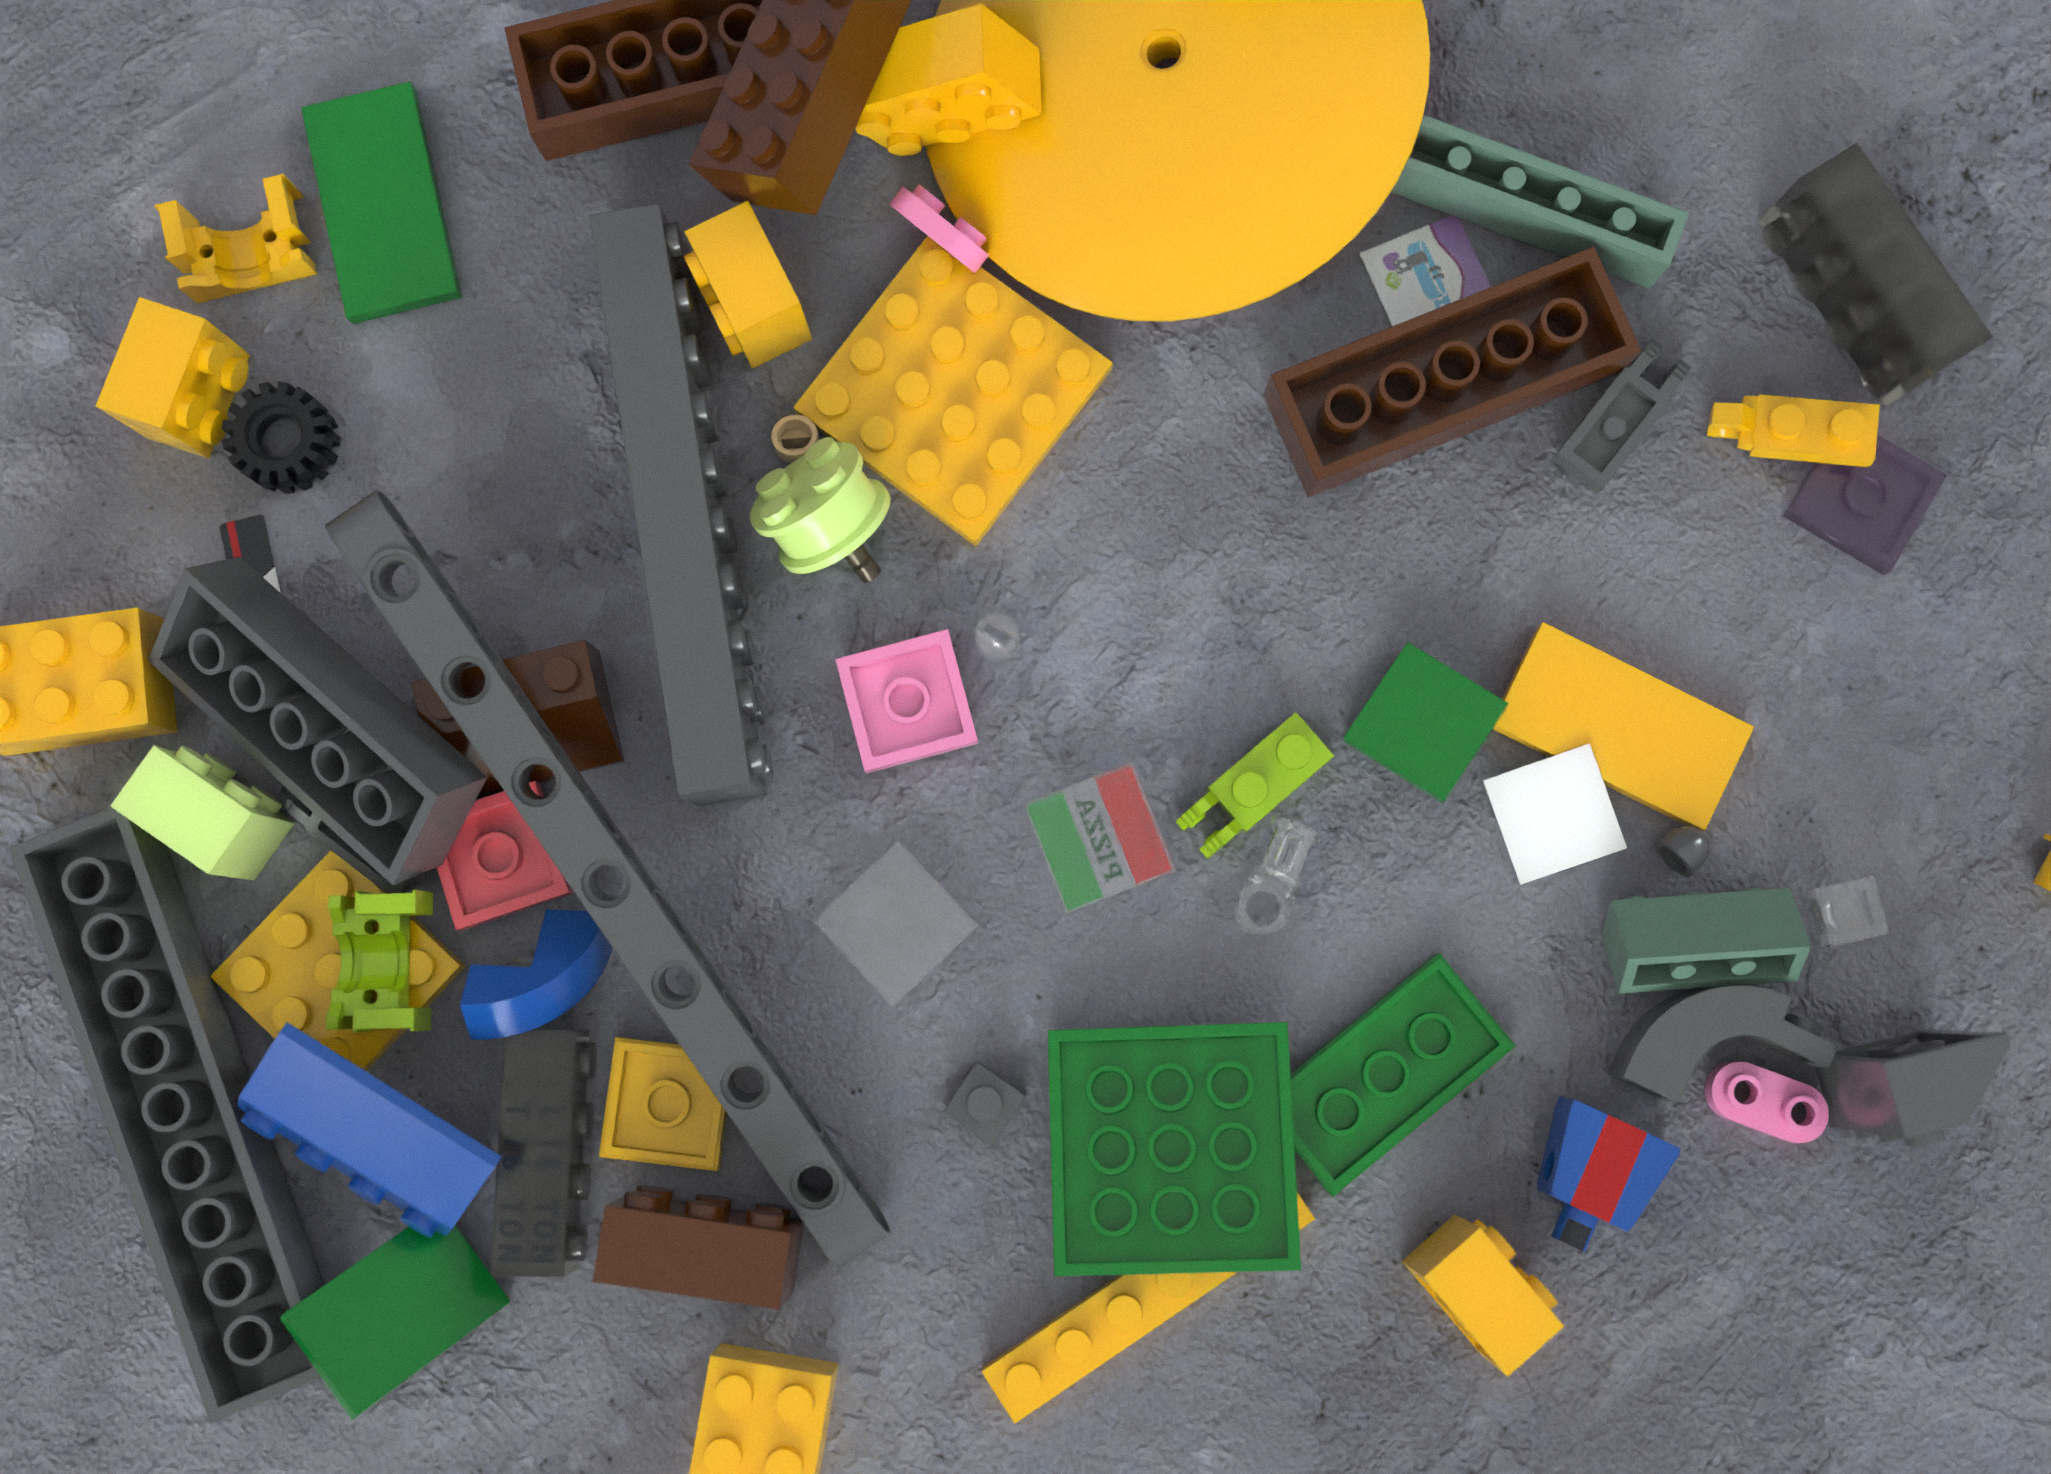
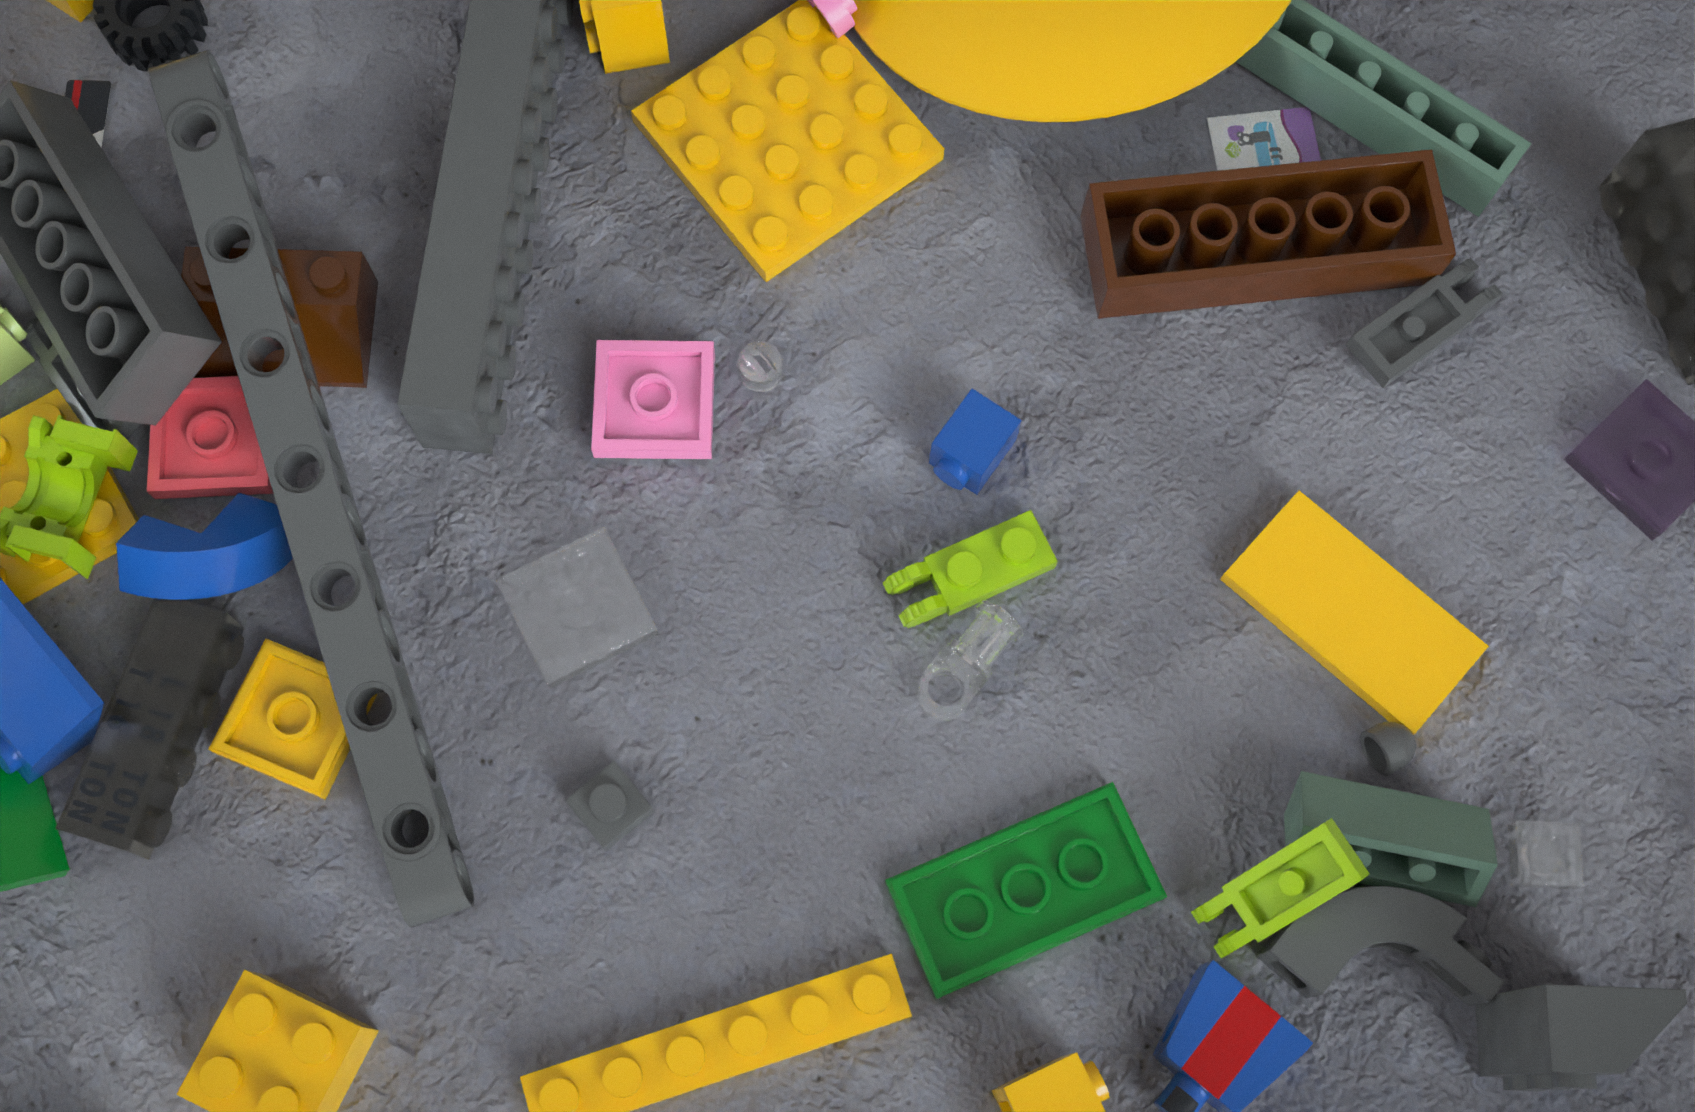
camera: 10 degrees right, 10 degrees down
(699, 1247) = (273, 856): reddish brown brick -> none
(793, 432) = (623, 139): tan hinge -> none
(822, 510) = (626, 198): yellowish green wheel -> none
(1099, 837) = (803, 580): clear tile -> none
(1172, 1150) = (783, 901): green plate -> none
(1224, 662) = (973, 442): none -> blue brick
(1425, 722) = (1157, 554): green tile -> none
(1555, 814) = (1265, 678): white sticker -> none
(1623, 1016) = (1285, 886): none -> lime hinge
(1768, 1103) = (1418, 1030): bright pink plate -> none
(1799, 428) = (1596, 376): yellow hinge -> none

